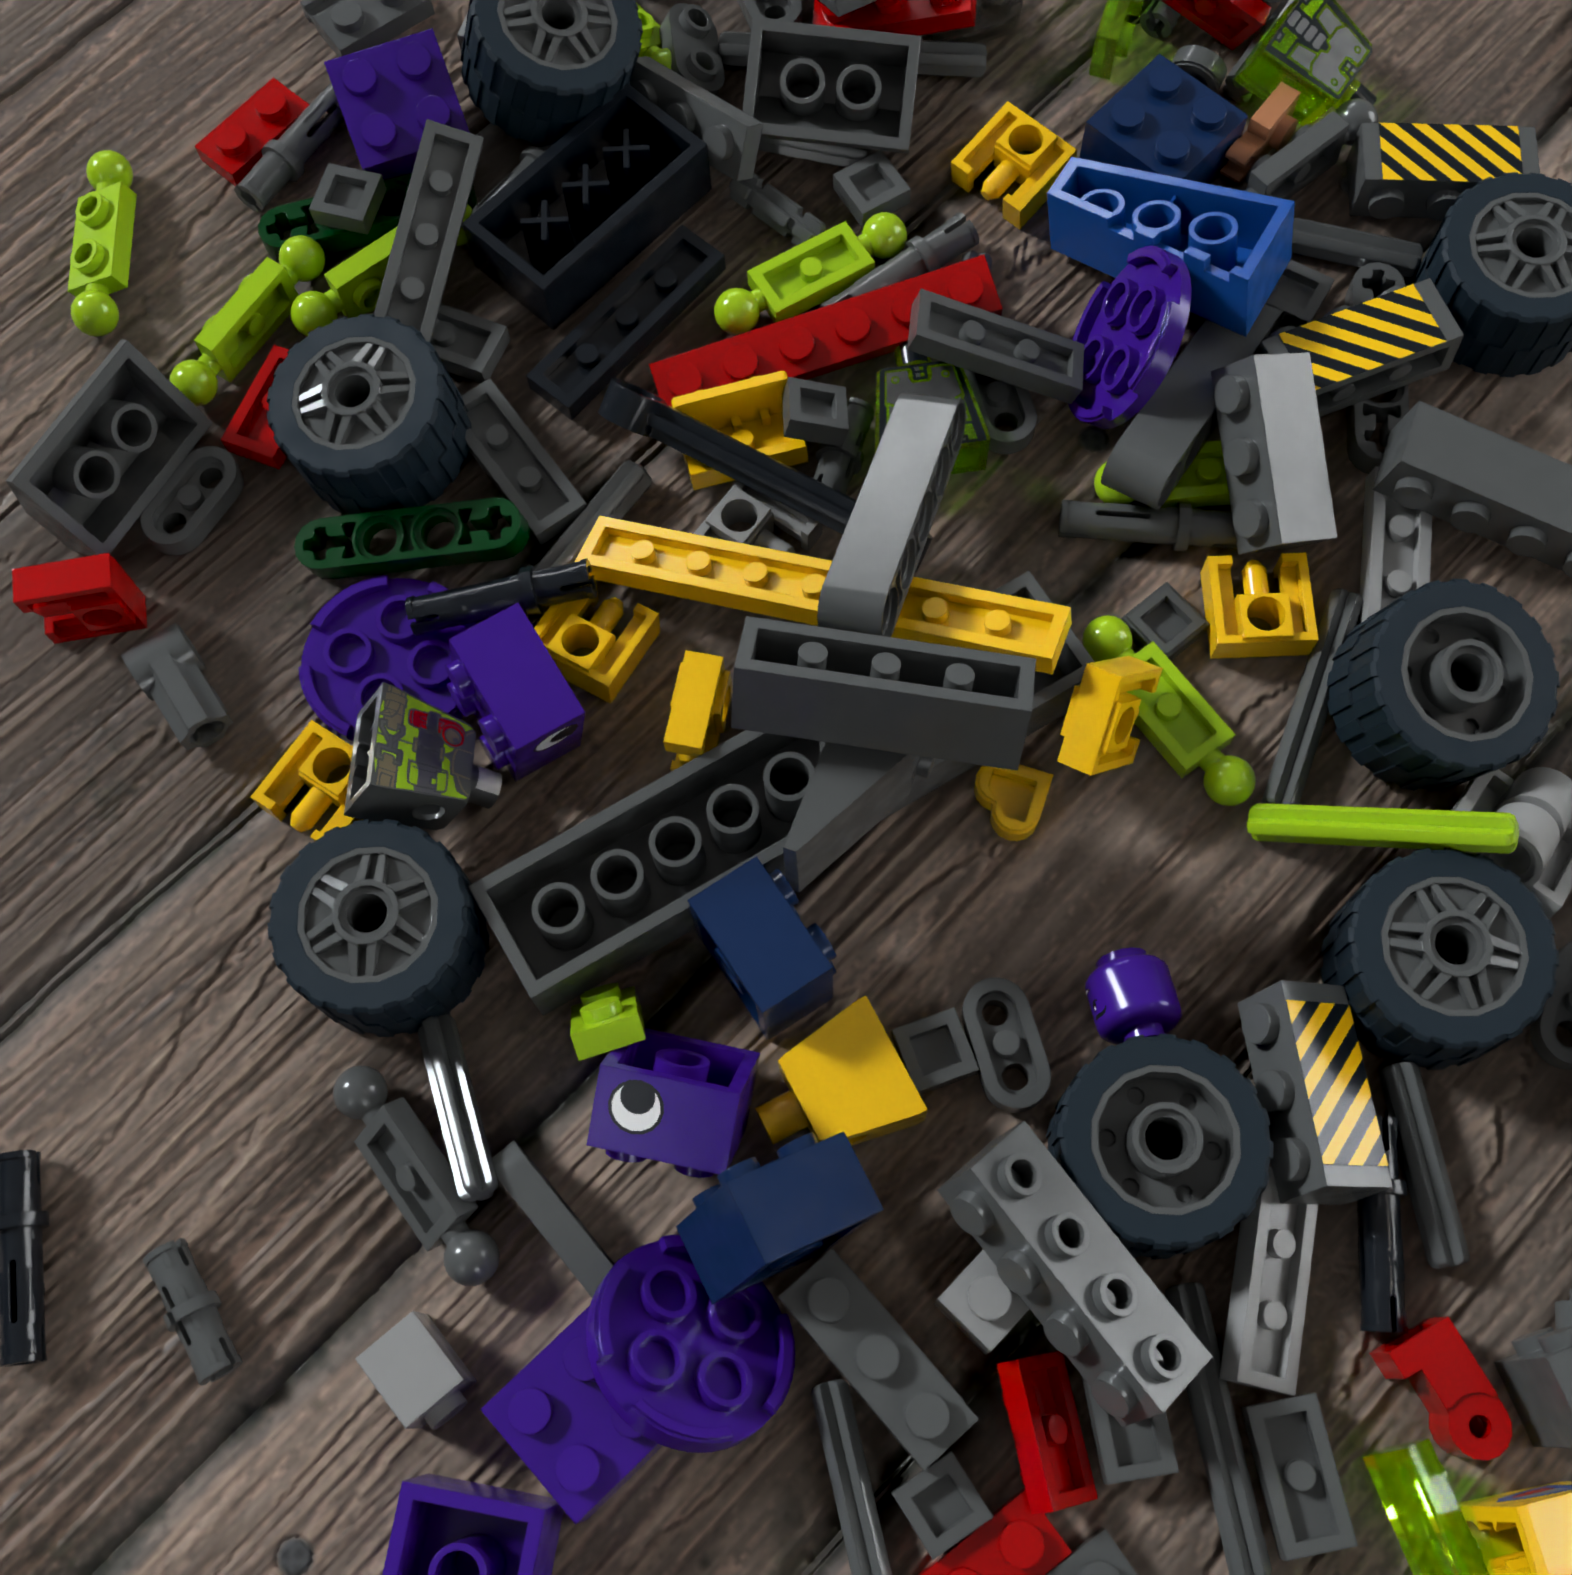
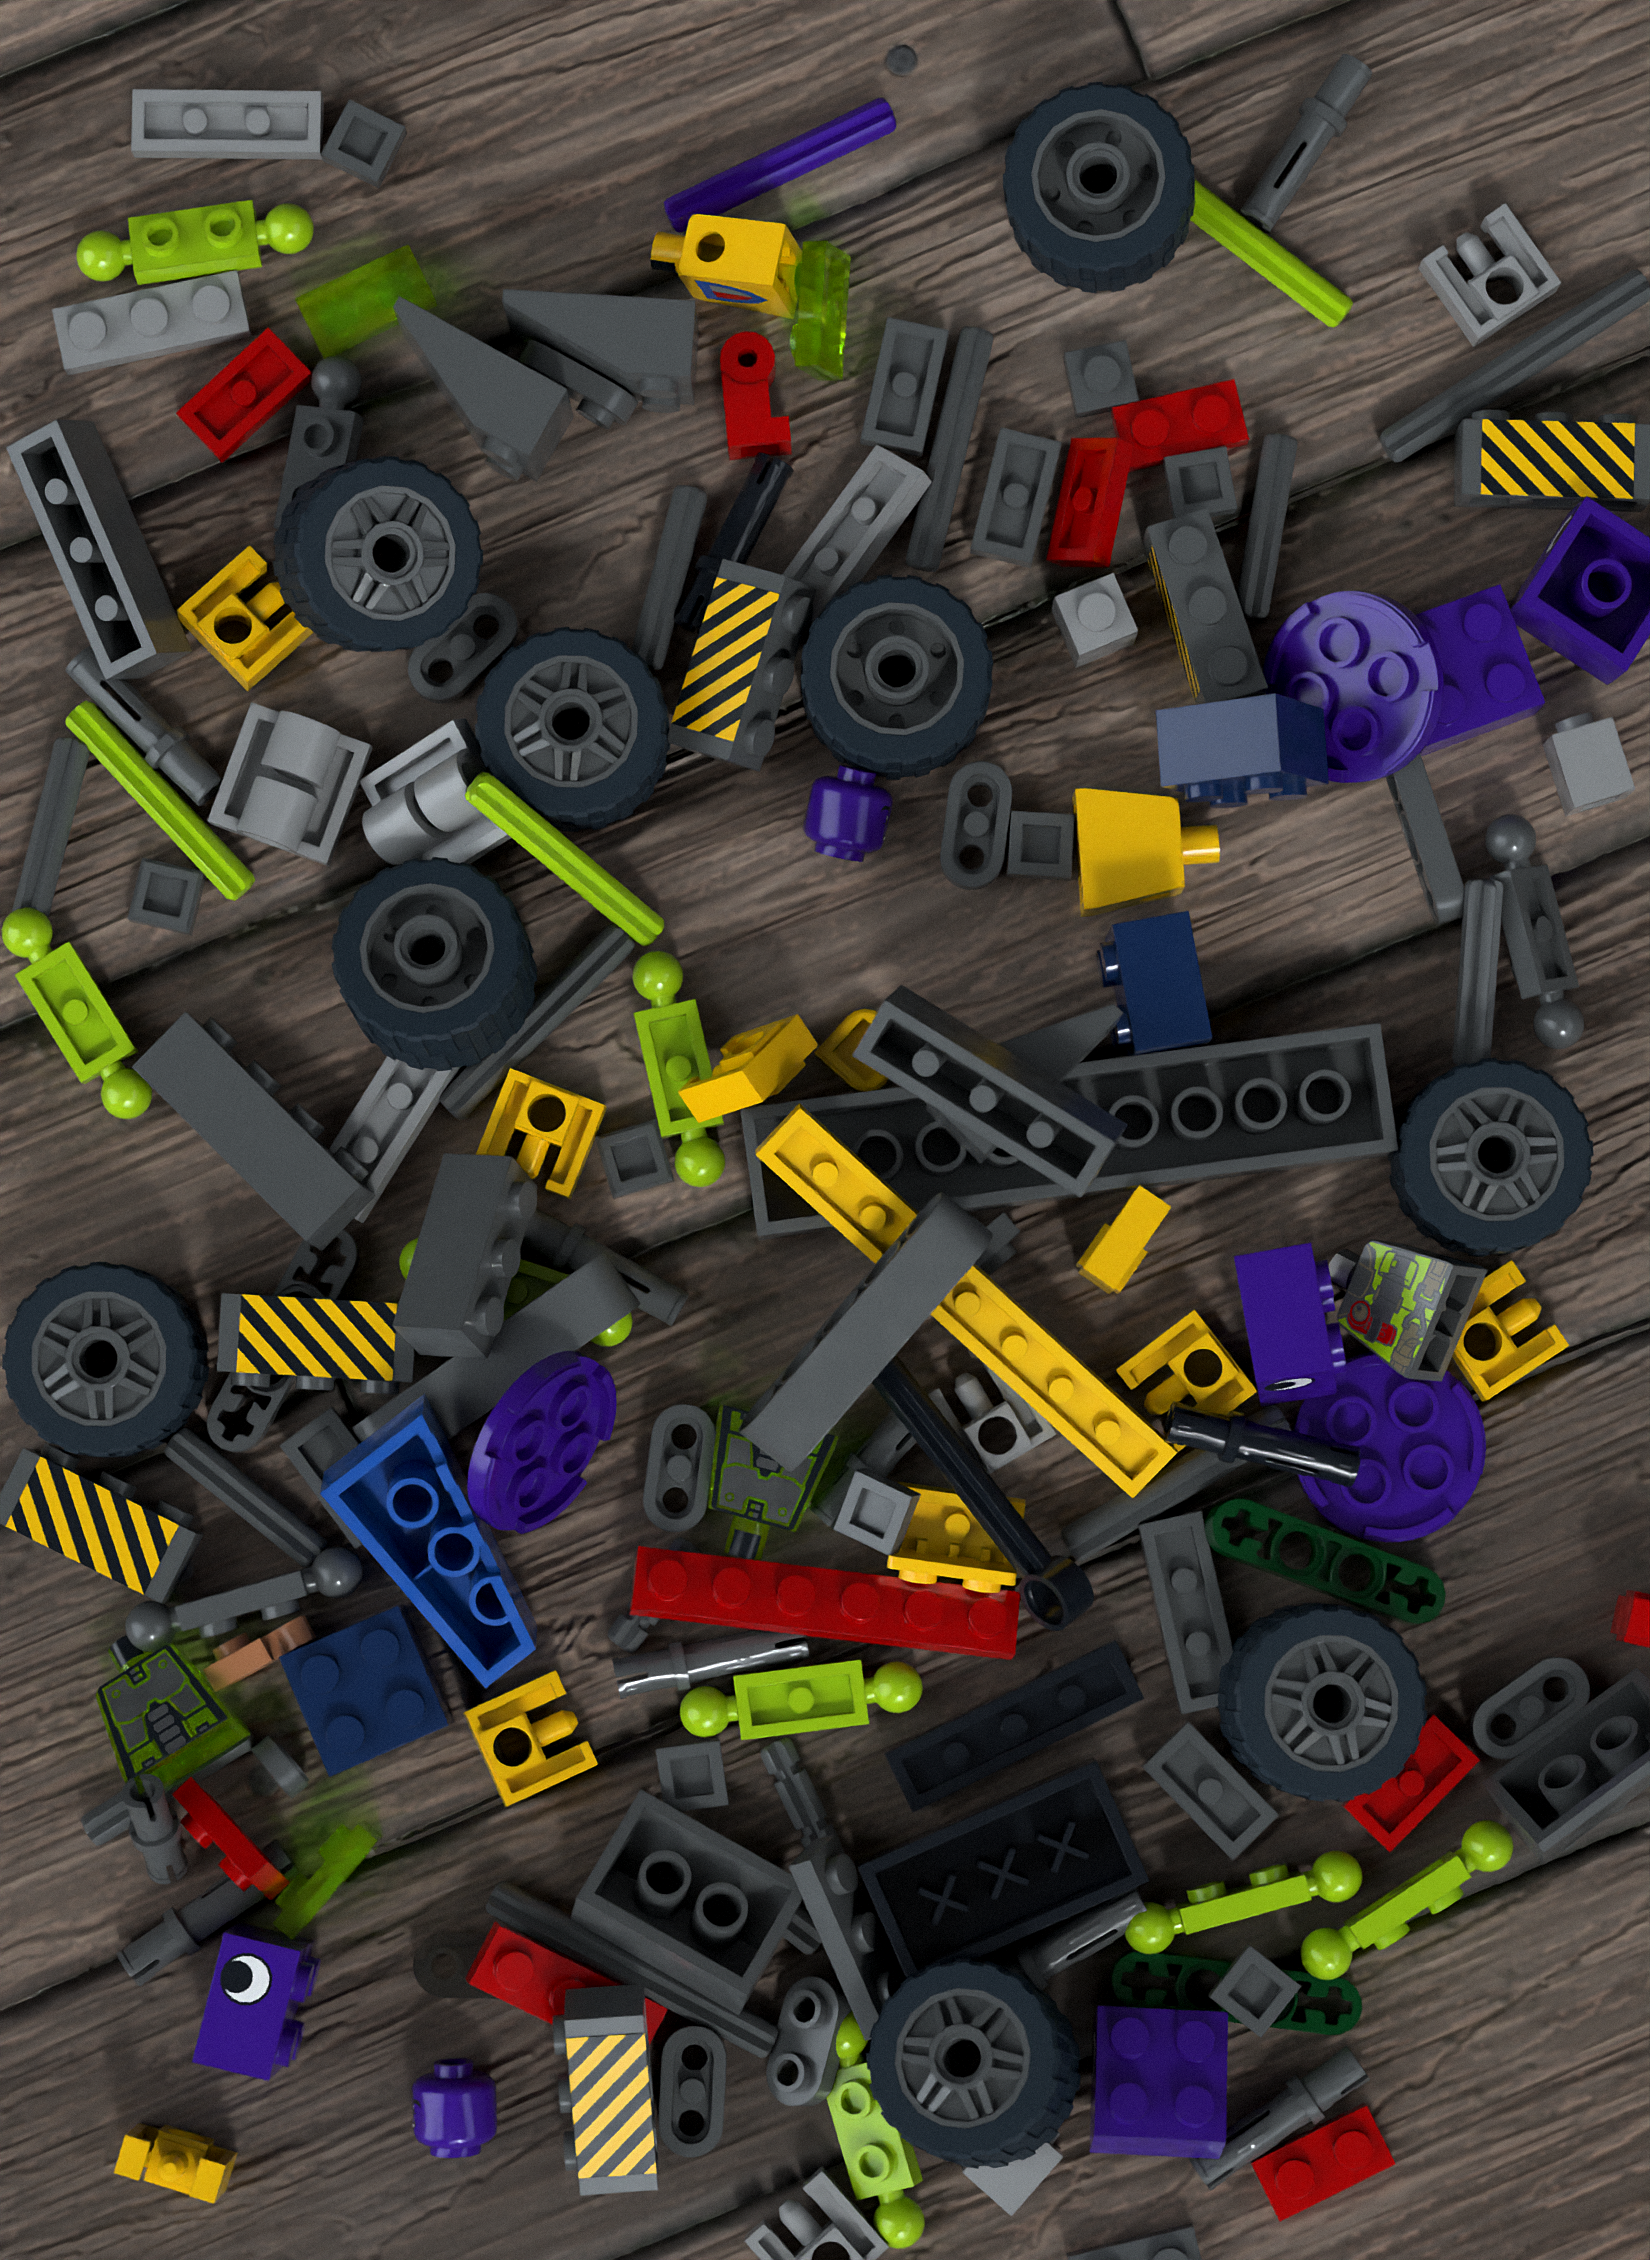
camera: 160 degrees left, 15 degrees up
(102, 243) = (1532, 2078): lime plate -> none
(173, 676) = (1606, 1518): dark grey piece -> none
(429, 227) = (1190, 1883): dark grey plate -> none
(606, 1020) = (1319, 982): lime plate -> none
(674, 1102) = (1287, 886): dark purple brick -> none
(996, 346) = (669, 1498): dark grey plate -> none
(1075, 1276) = (1023, 600): dark grey brick -> none

